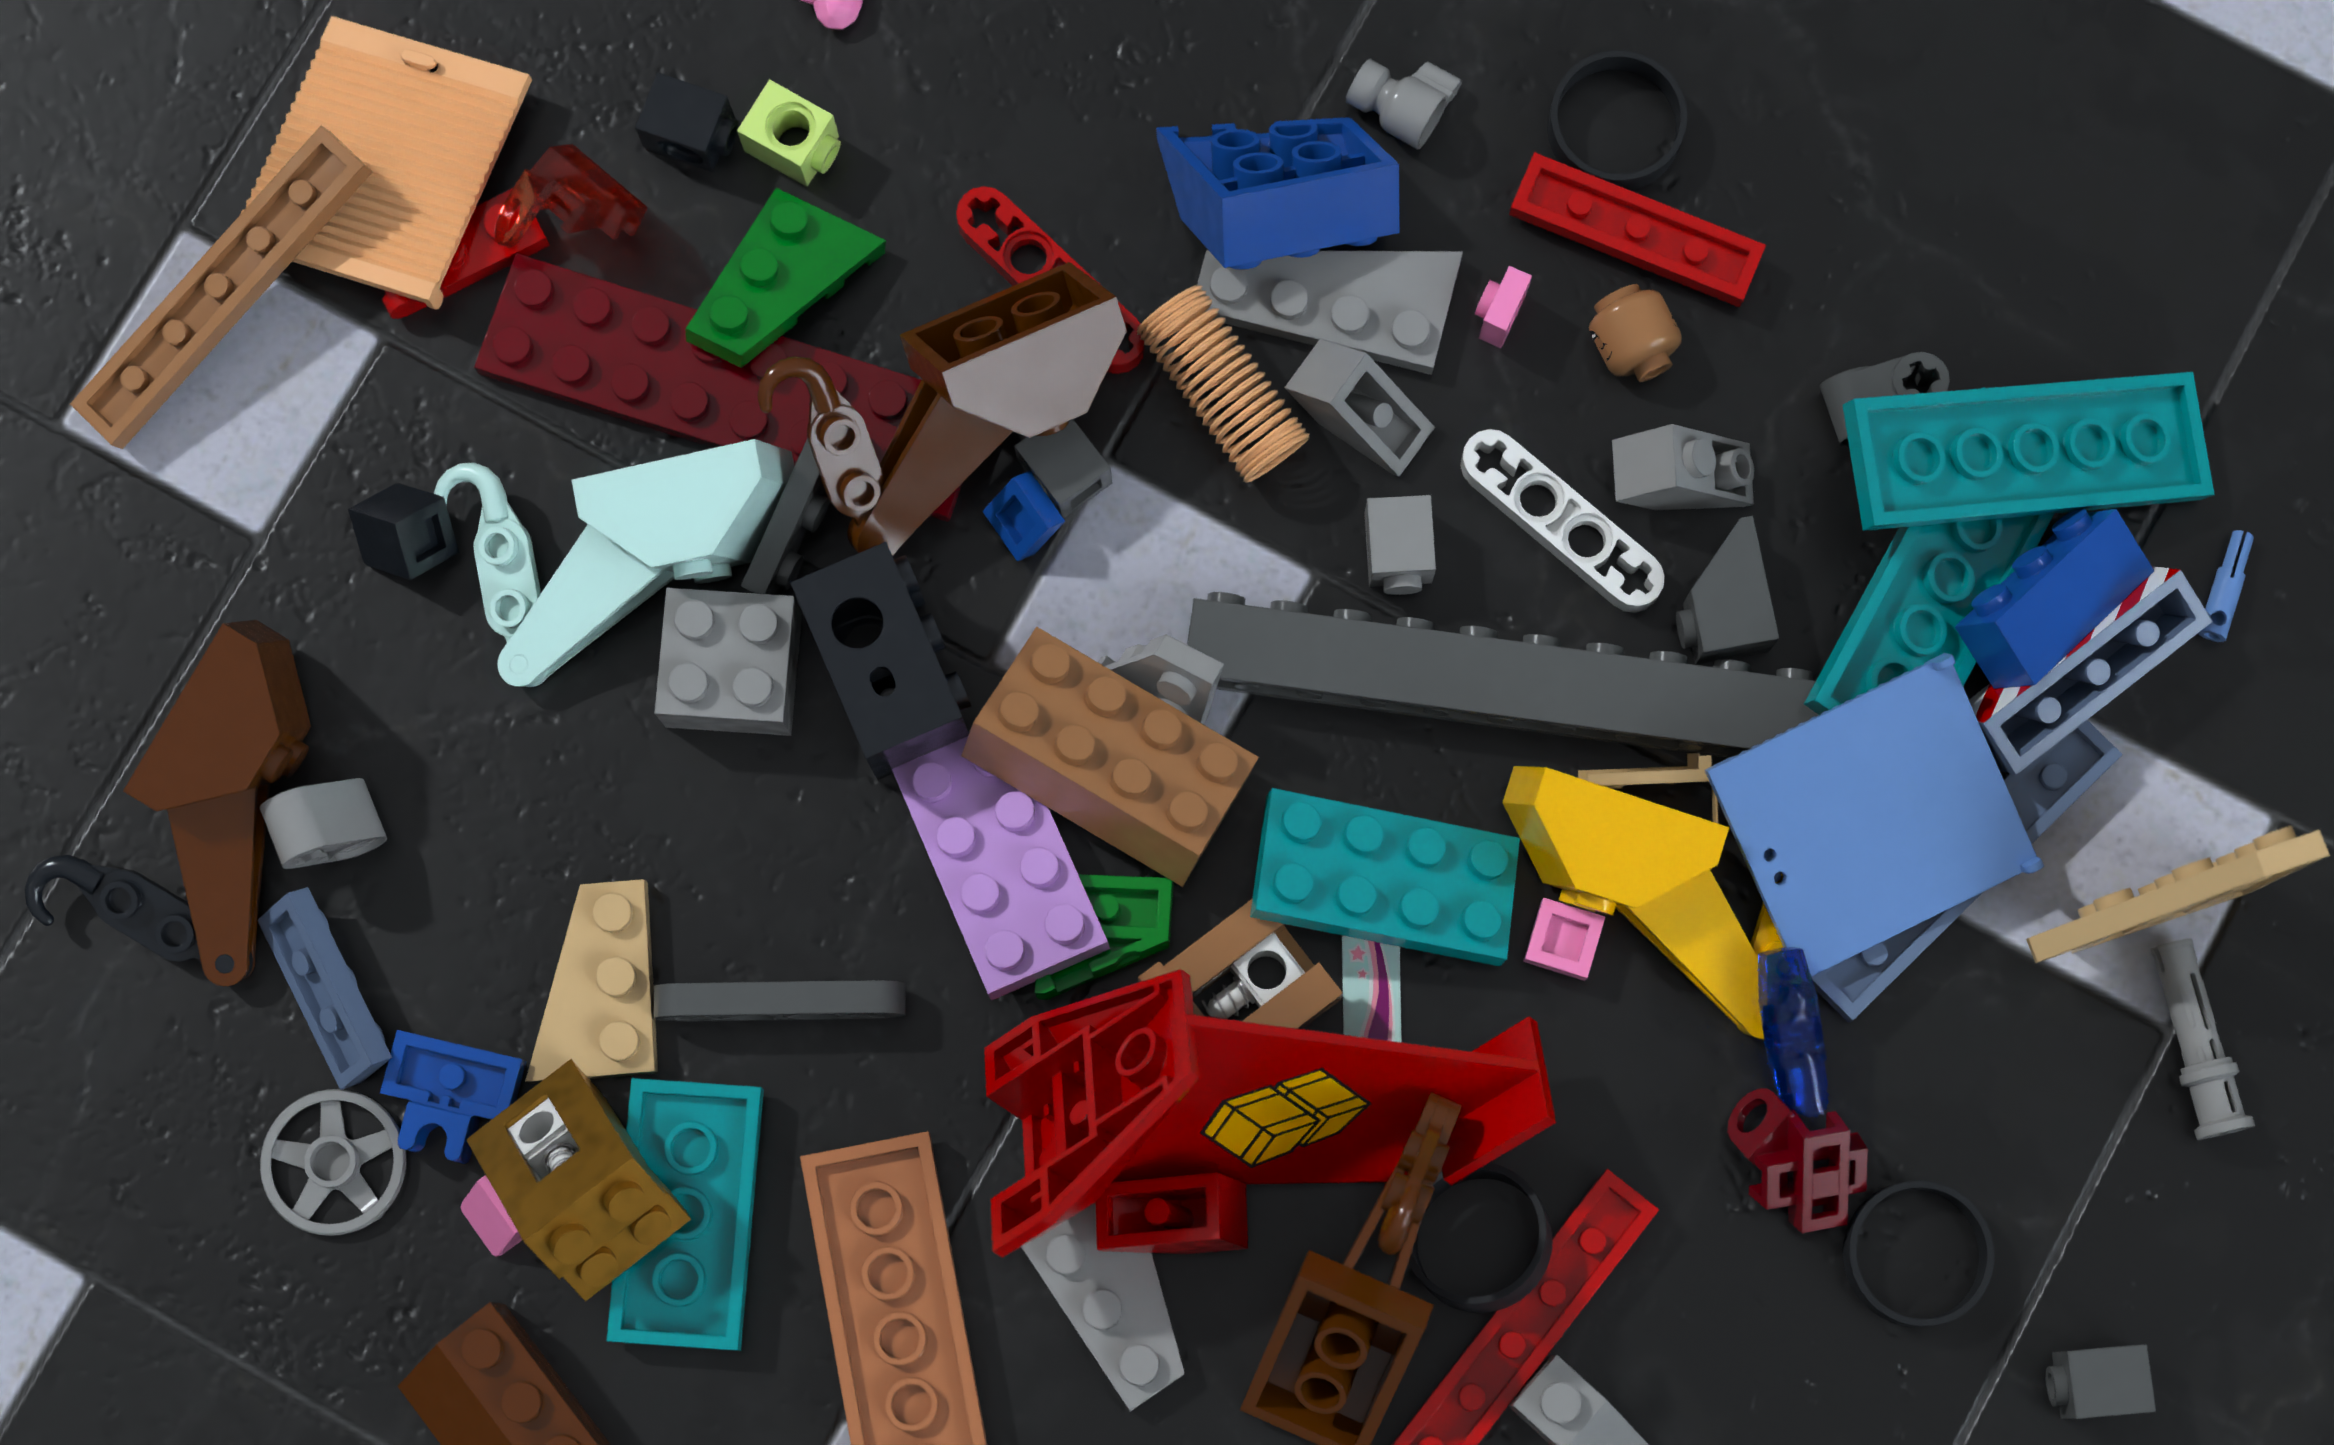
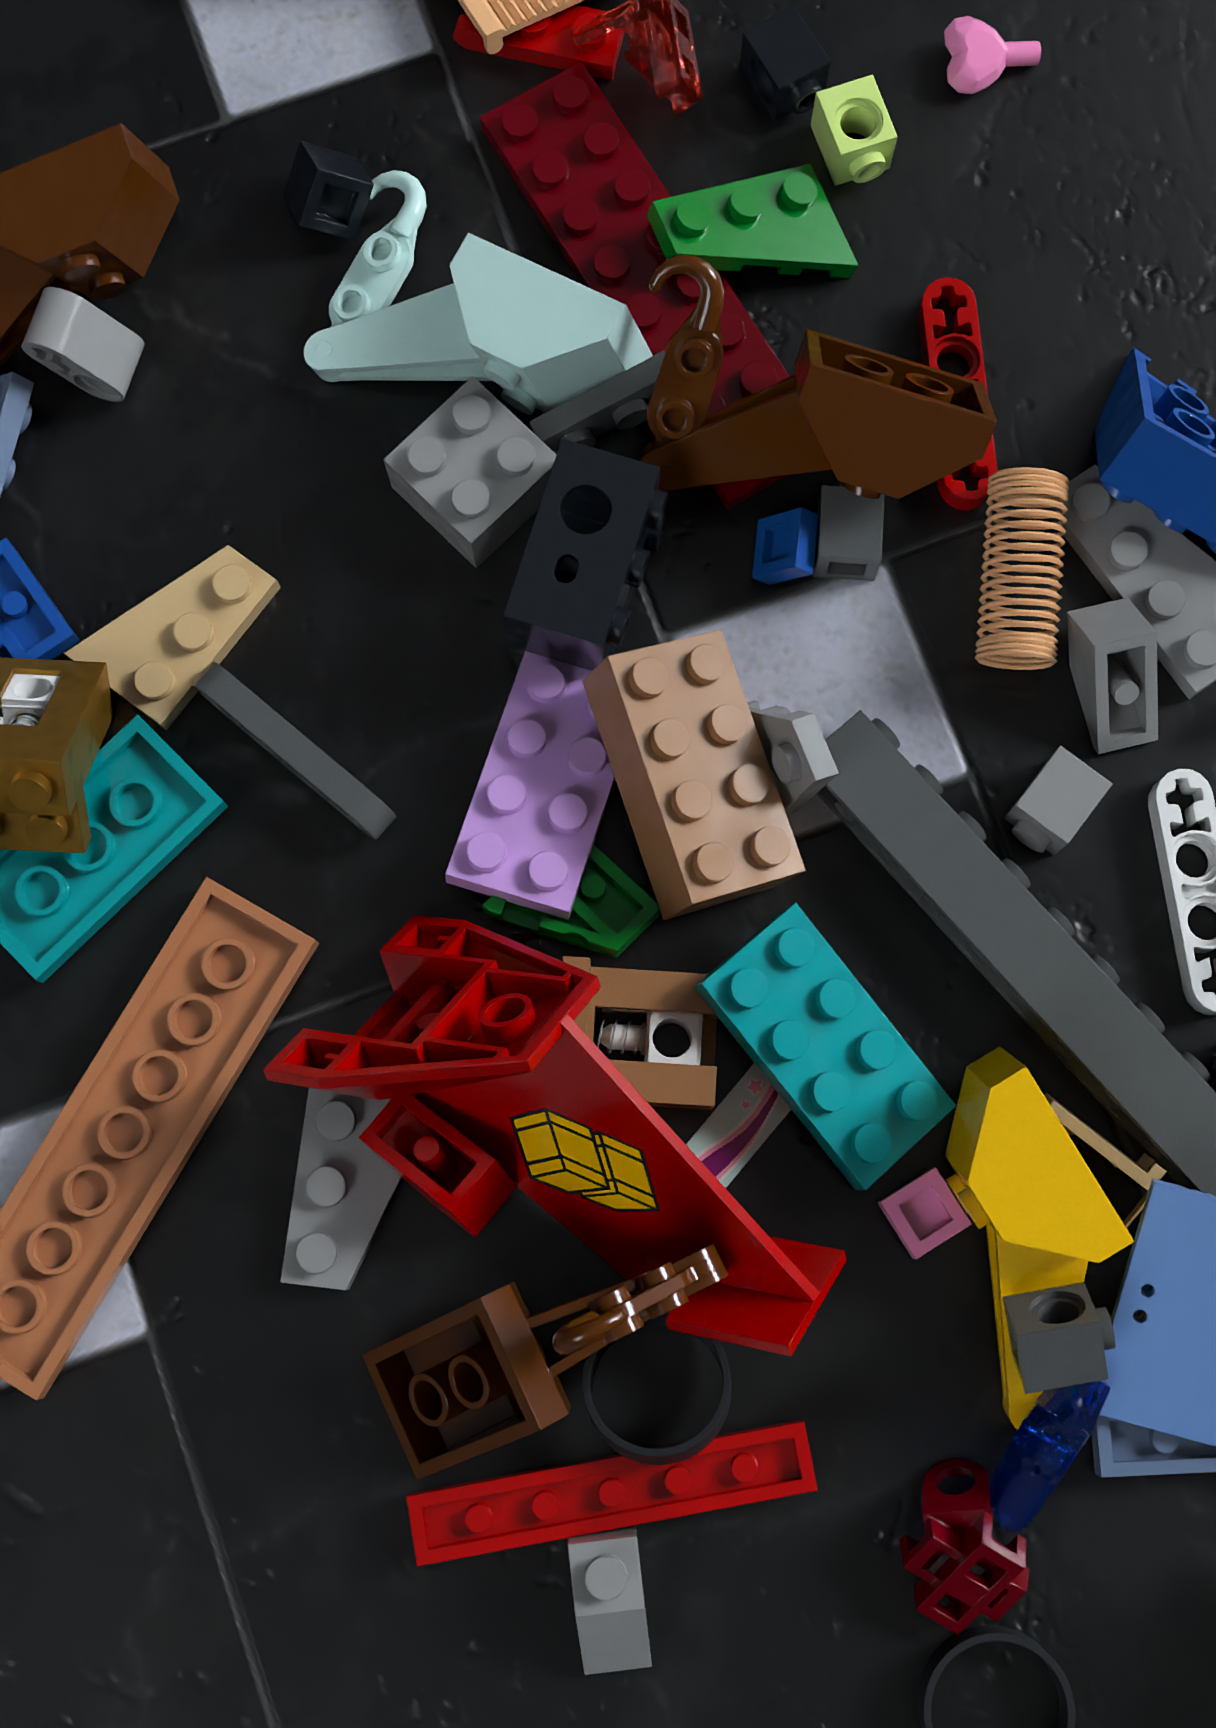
camera: 40 degrees right, 0 degrees up
(1734, 944) = (1058, 1337): none -> dark grey brick

